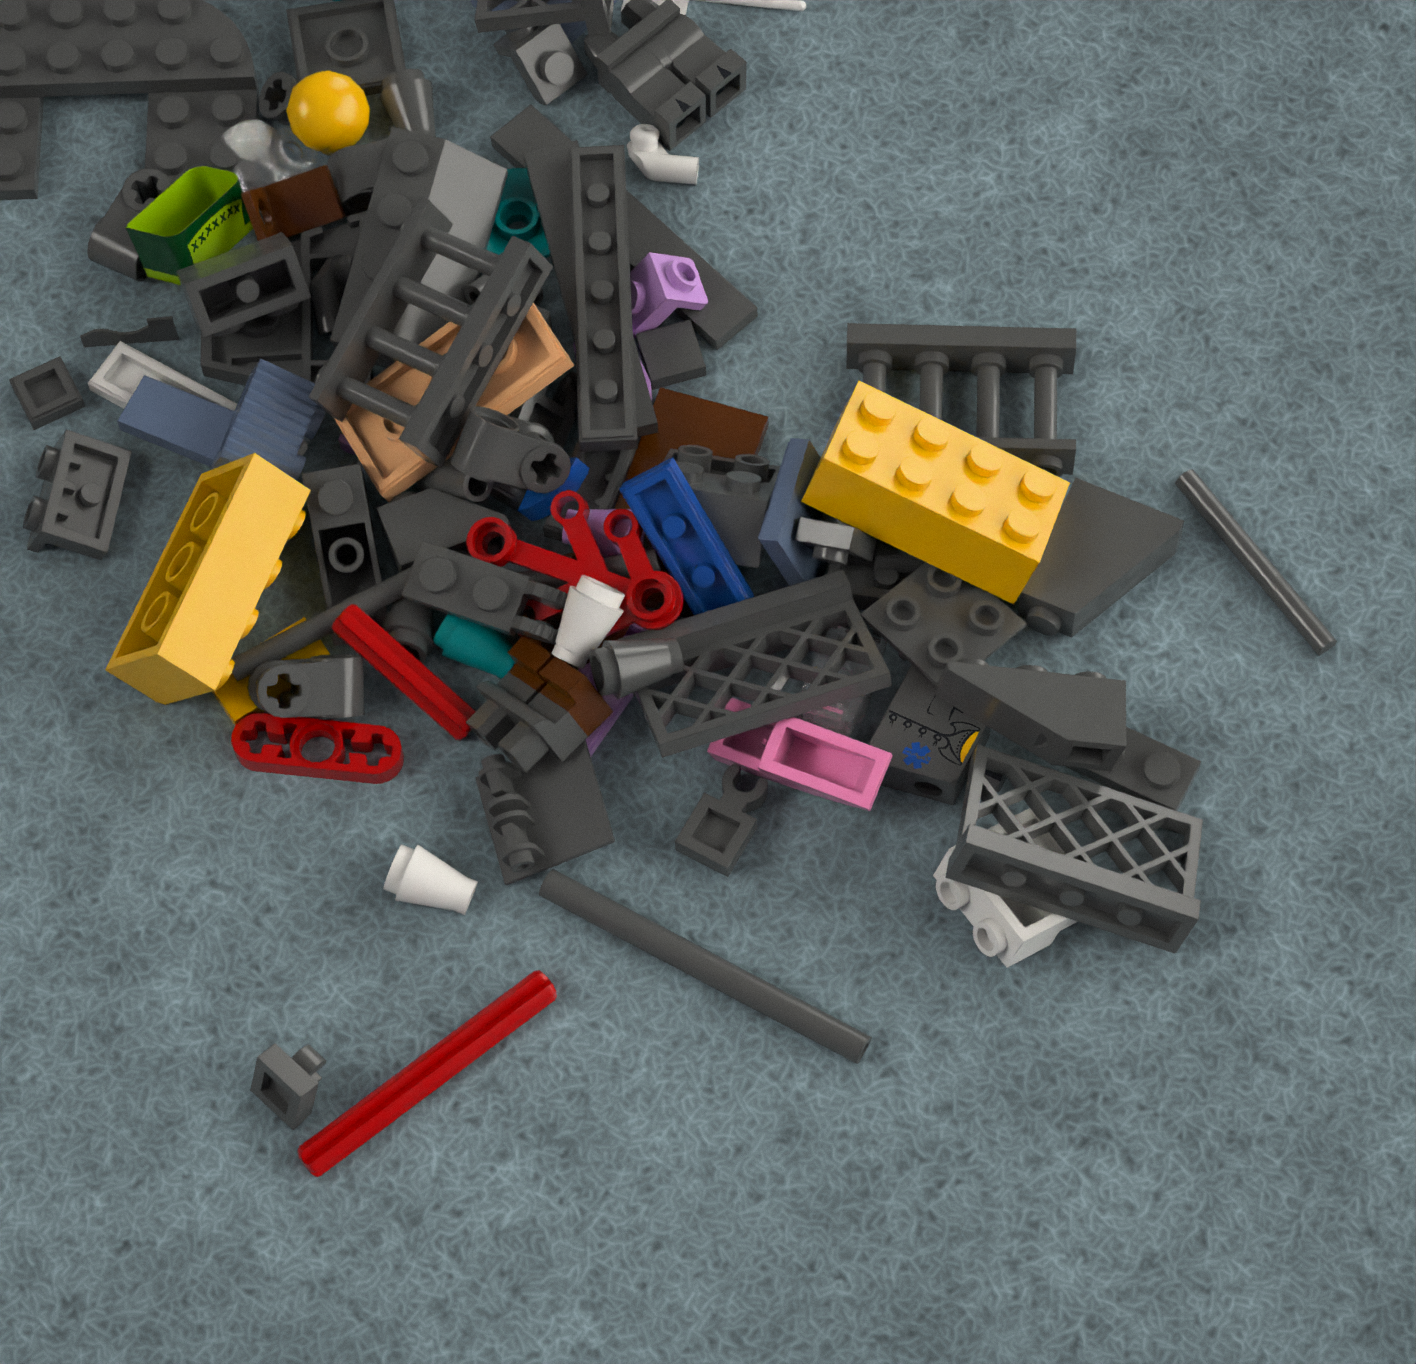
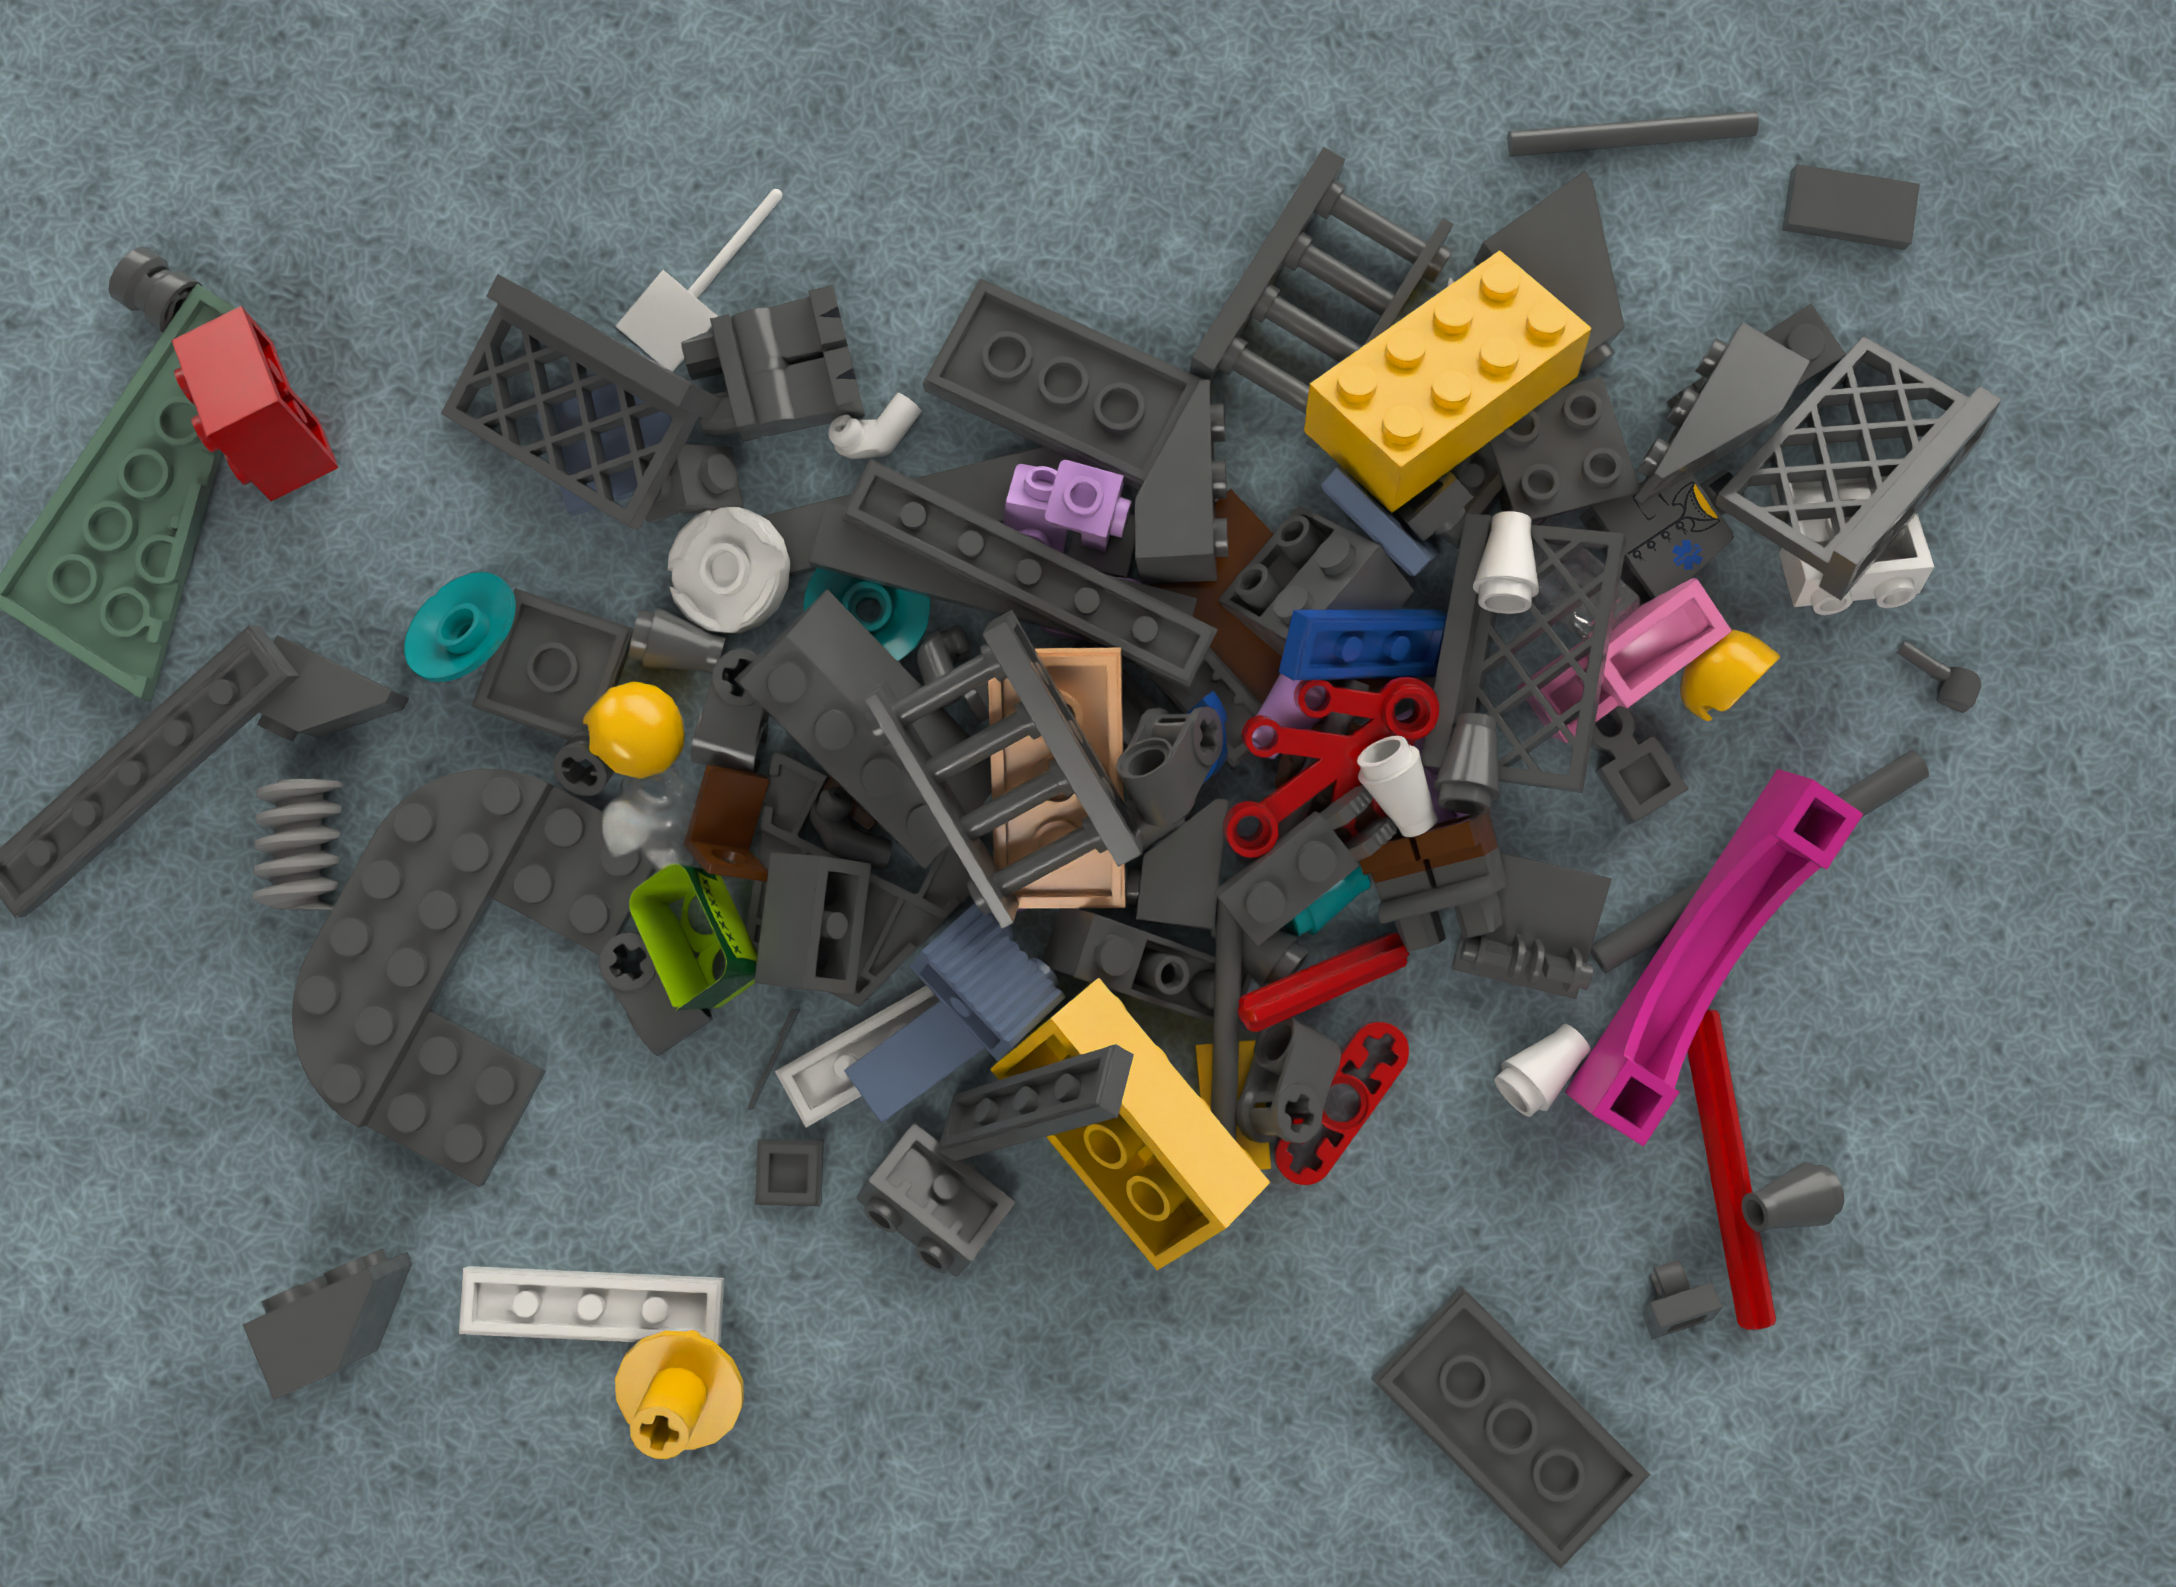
camera: 65 degrees left, 20 degrees up
(117, 1014) = (1510, 1427): none -> dark grey tile
(185, 485) = (1037, 1103): none -> dark grey tile
(426, 1125) = (1798, 1198): none -> dark grey cone
(491, 114) = (728, 570): none -> white tile
(604, 940) = (1773, 852): none -> dark pink arch
(682, 309) = (1088, 503): none -> lavender bracket
(731, 374) = (1176, 504): none -> dark grey slope
(775, 262) = (1059, 383): none -> dark grey tile
(813, 609) = (1508, 567): none -> white cone
(840, 830) = (1725, 673): none -> yellow hair
(949, 1046) = (1959, 684): none -> dark grey hand
(1306, 755) = (1851, 207): none -> dark grey tile

